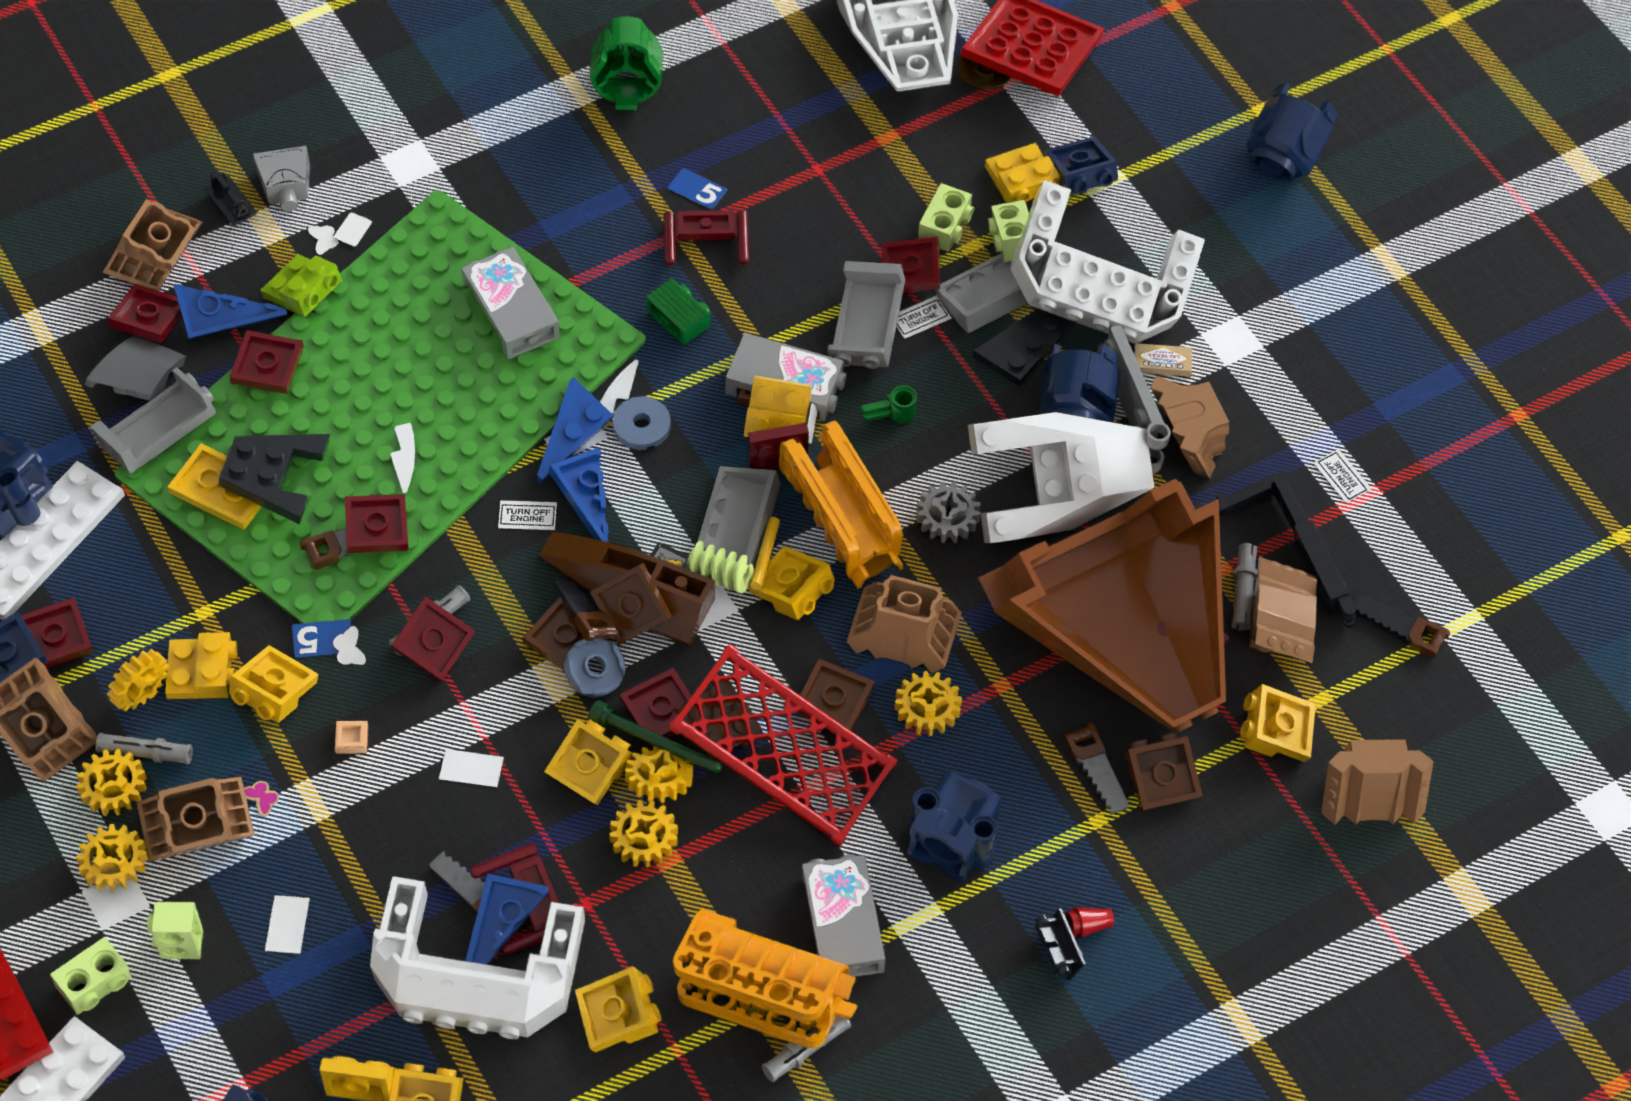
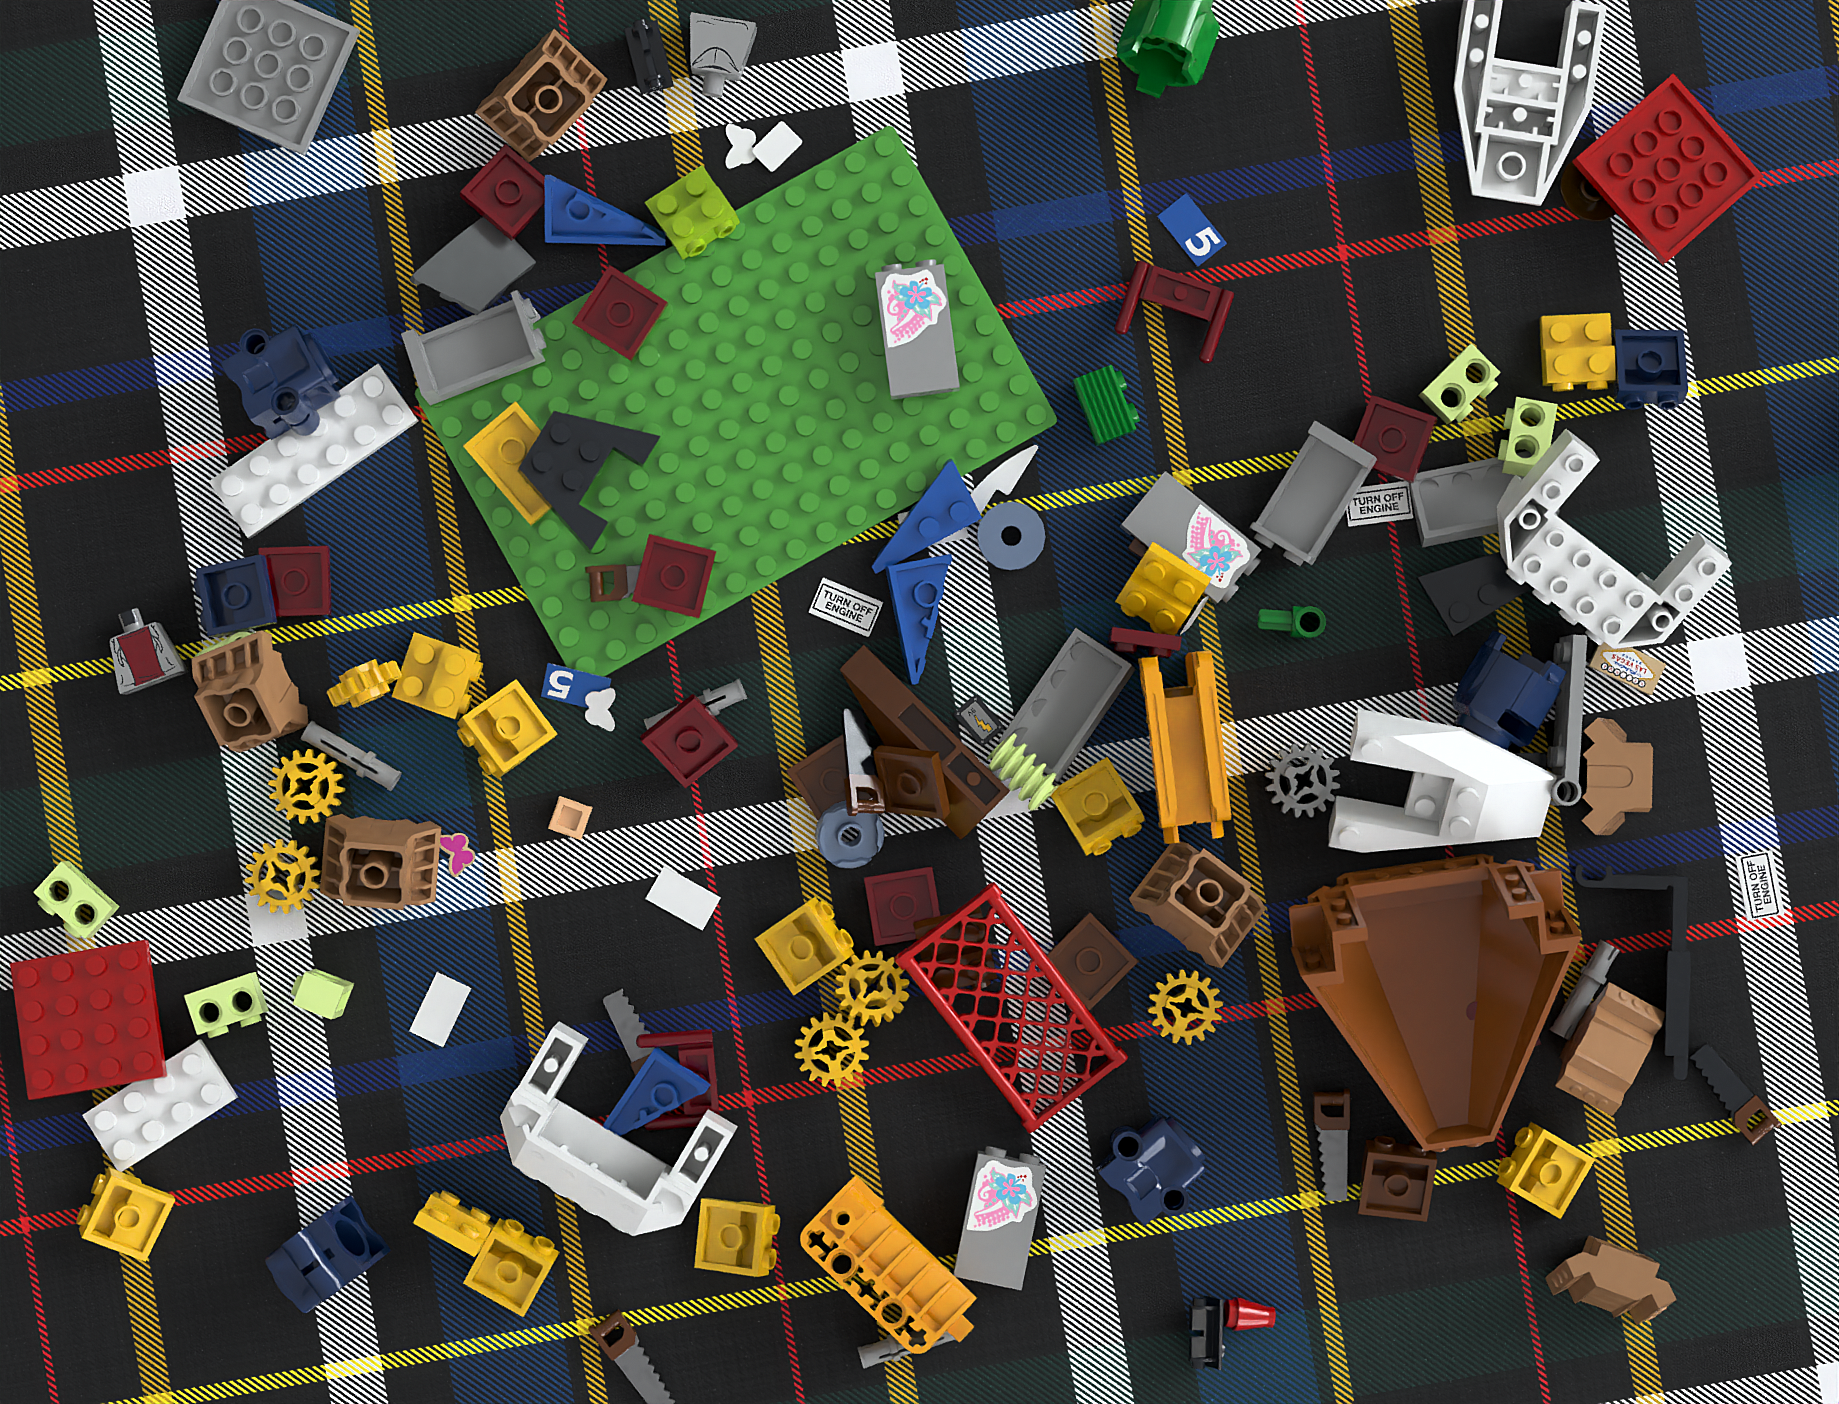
camera: 20 degrees right, 30 degrees up
(404, 459) = (734, 490): white sticker -> none
(604, 716) = (838, 898): dark green piece -> none
(765, 553) = (1082, 760): yellow bar -> none

